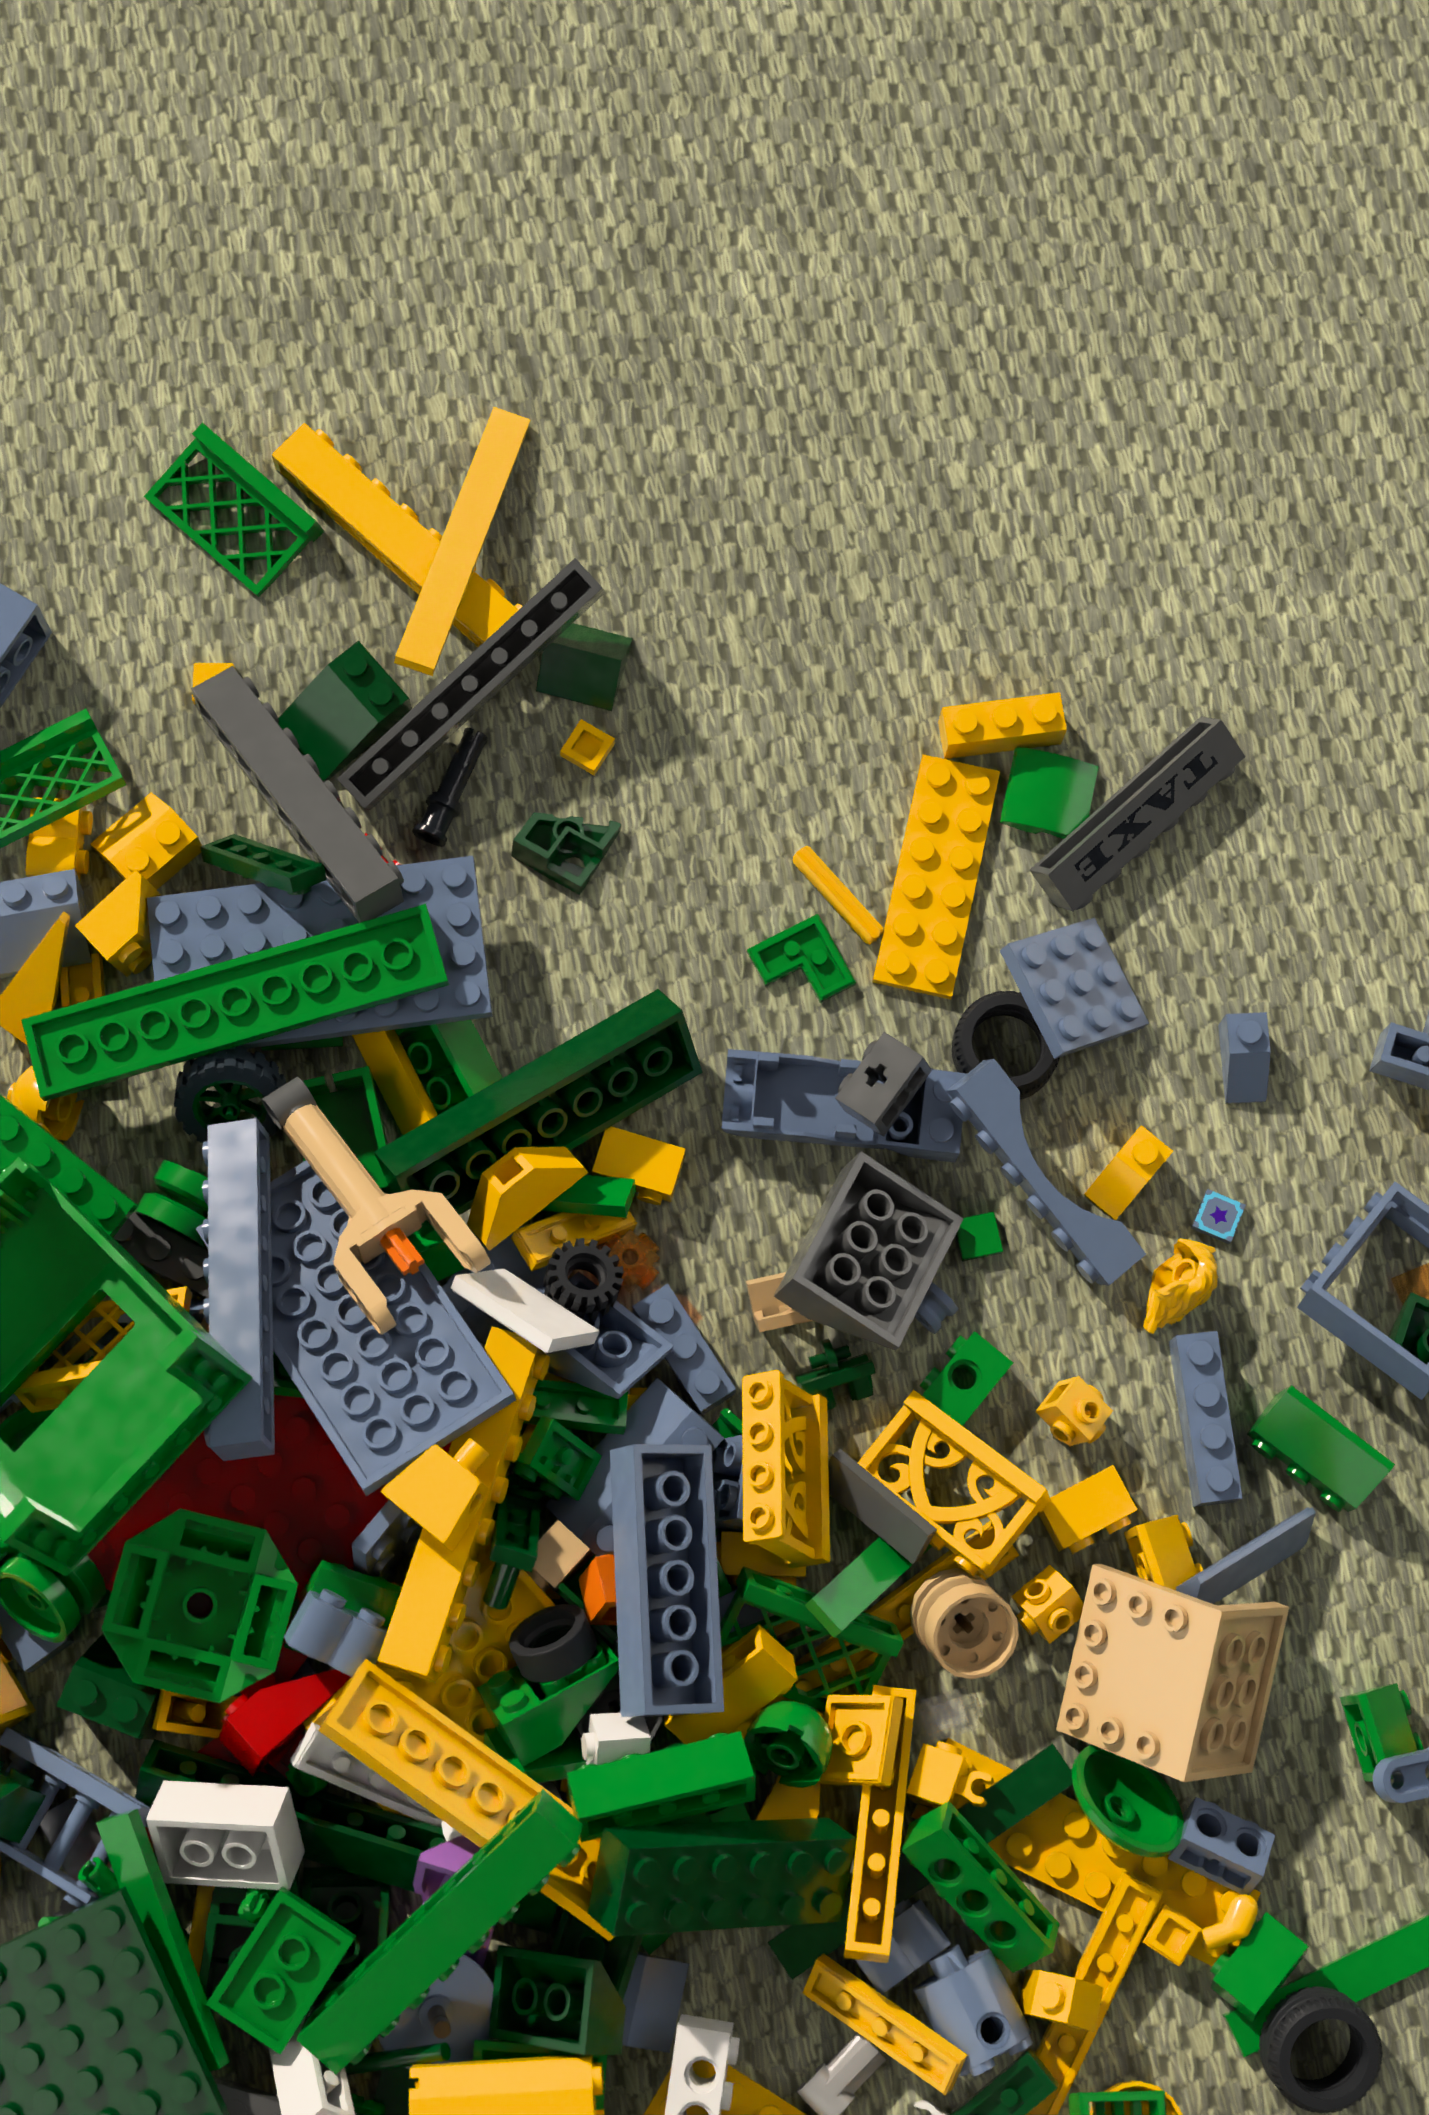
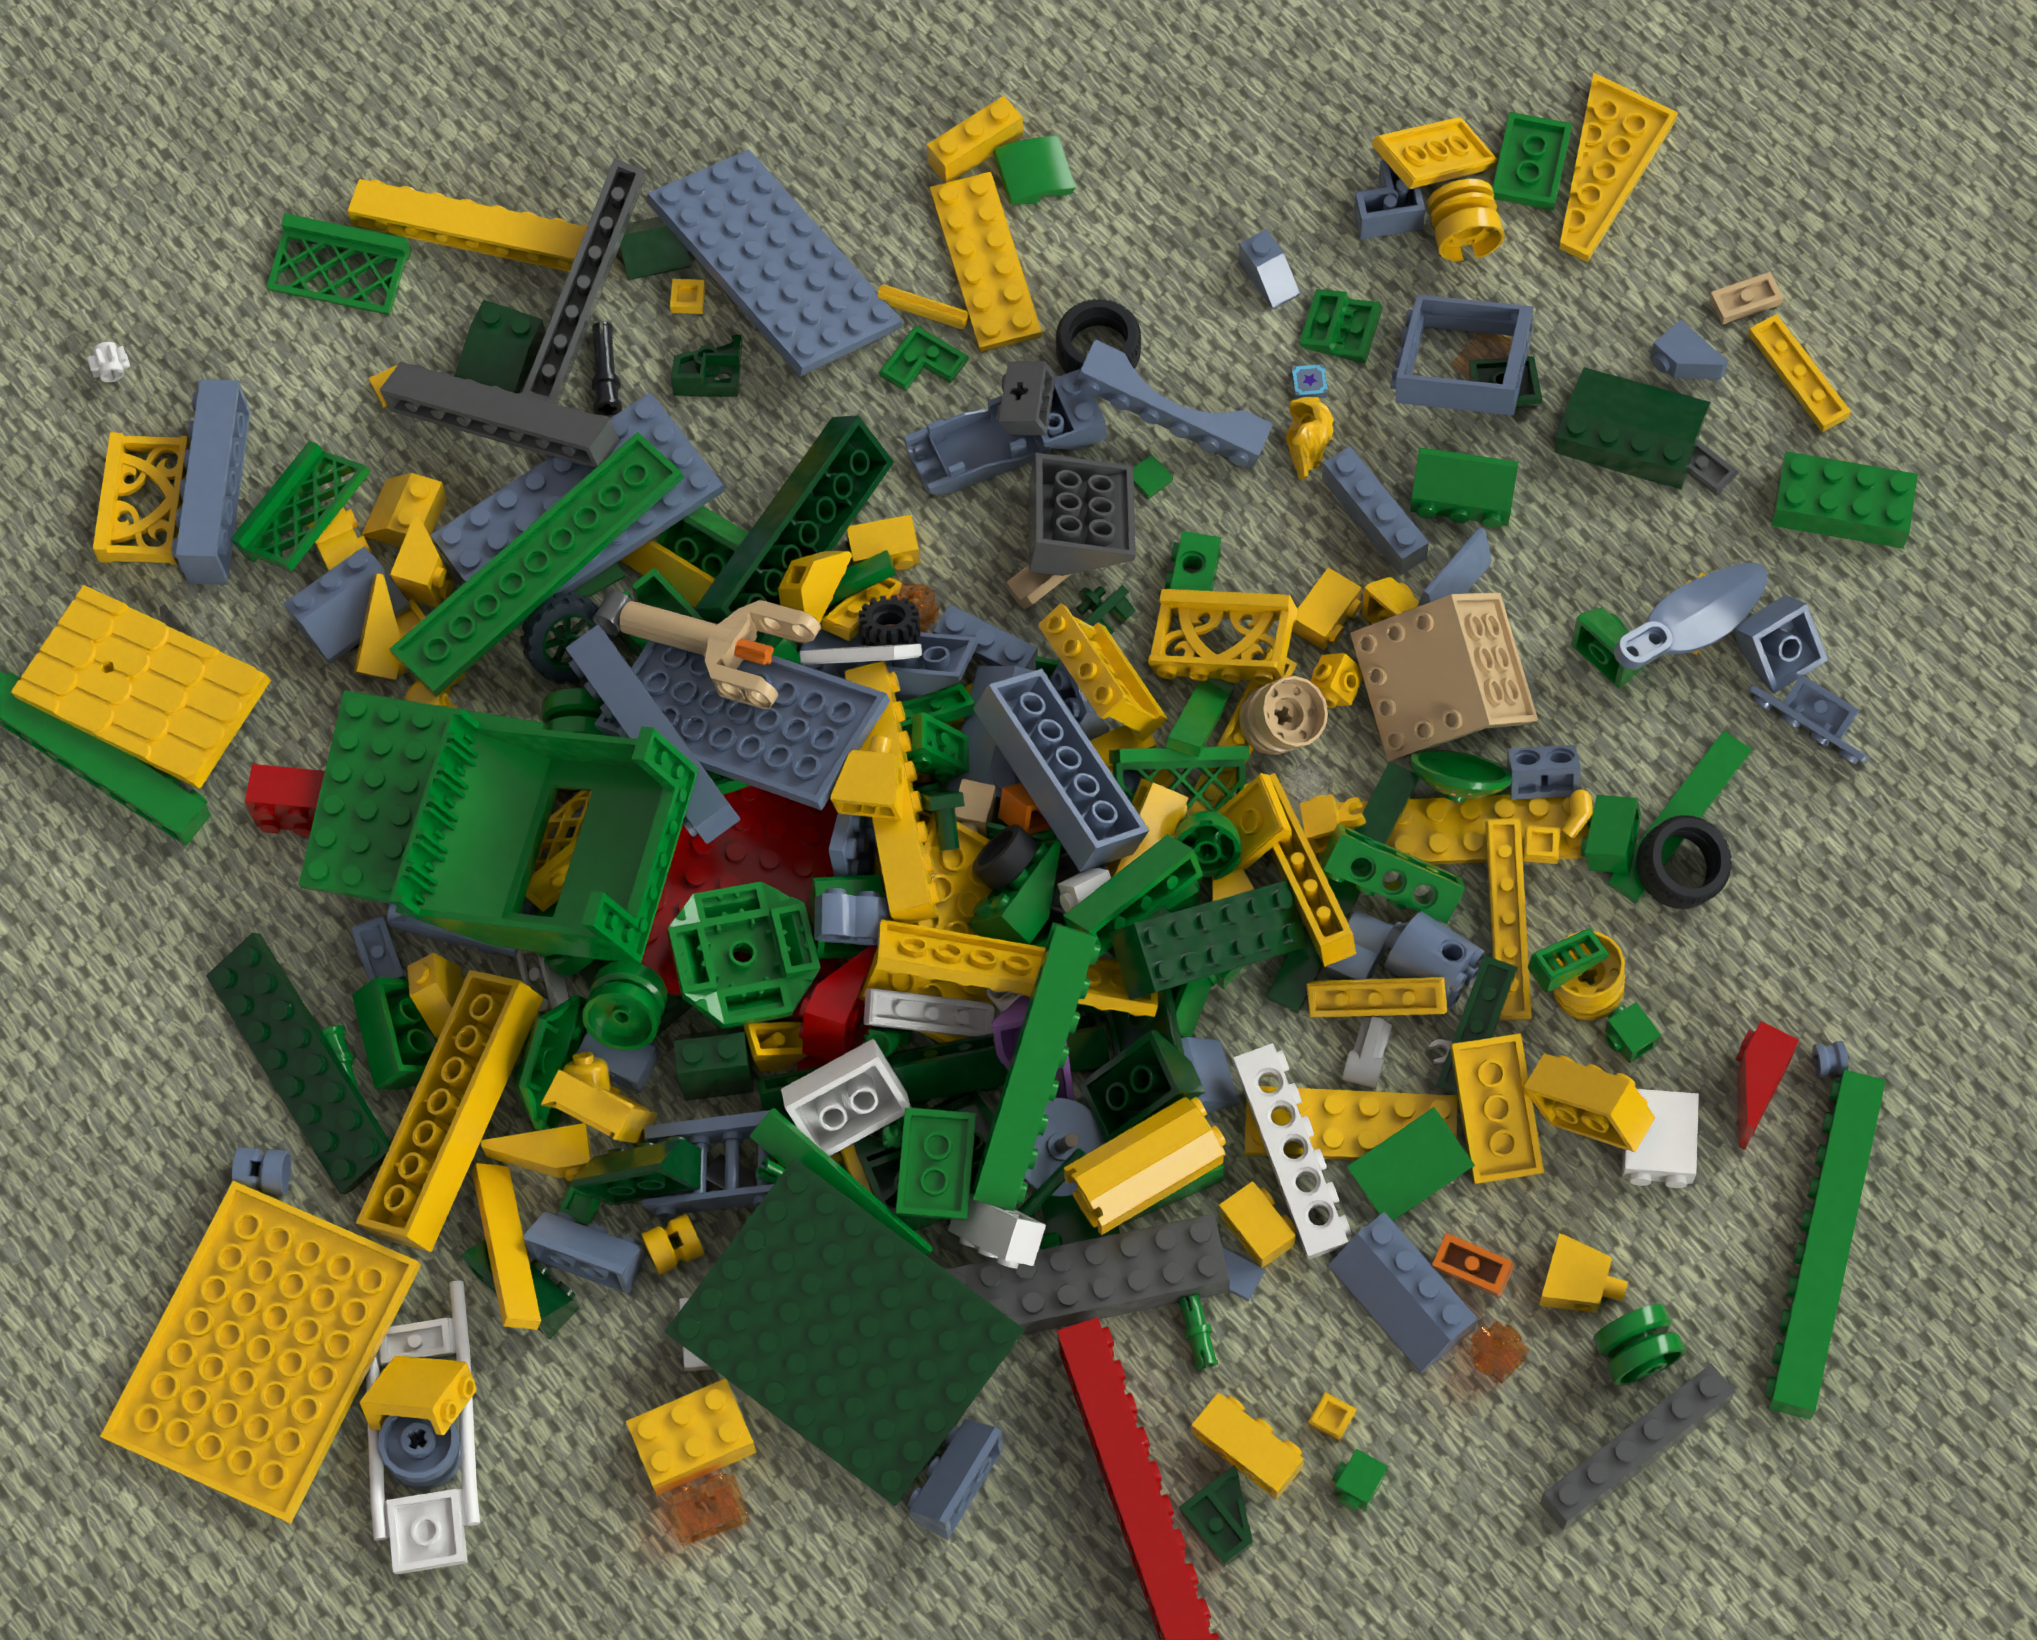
camera: 20 degrees left, 10 degrees down
(264, 864) = (495, 475): dark green plate -> none
(462, 542) = (520, 200): yellow tile -> none
(700, 759) = (774, 262): none -> sand blue plate
(878, 1507) = (1182, 672): dark grey tile -> none
(935, 1308) = (1146, 534): sand blue wheel -> none
(1060, 1999) = (1488, 916): yellow slope -> none
(1074, 987) = (1124, 279): sand blue plate -> none
(1075, 1412) = (1282, 549): yellow brick -> none
(1128, 1172) = (1231, 378): yellow slope -> none
(1138, 814) = (1103, 150): dark grey brick -> none
(1273, 1158) = (1327, 321): none -> green slope

